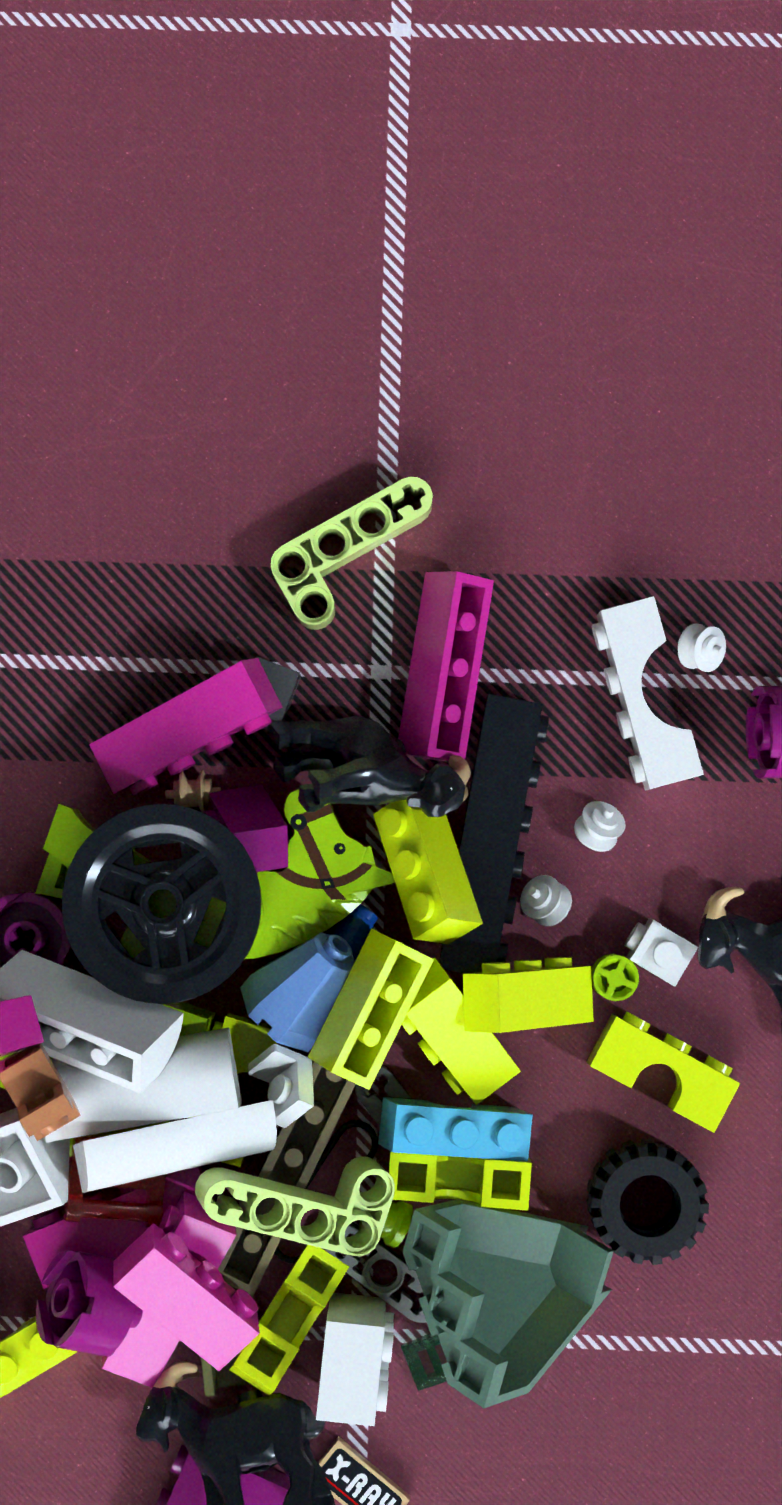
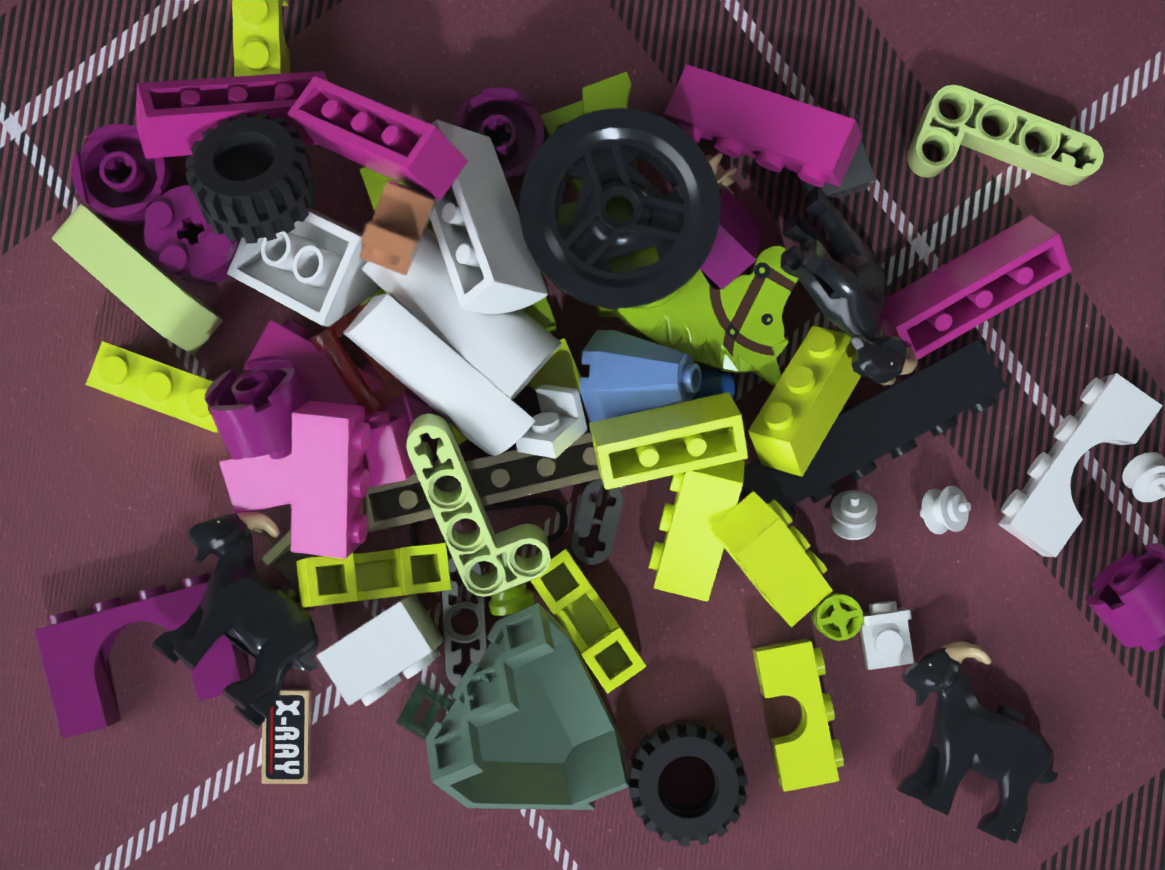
camera: 50 degrees right, 0 degrees up
(455, 1131) = (622, 586): medium azure arch -> none

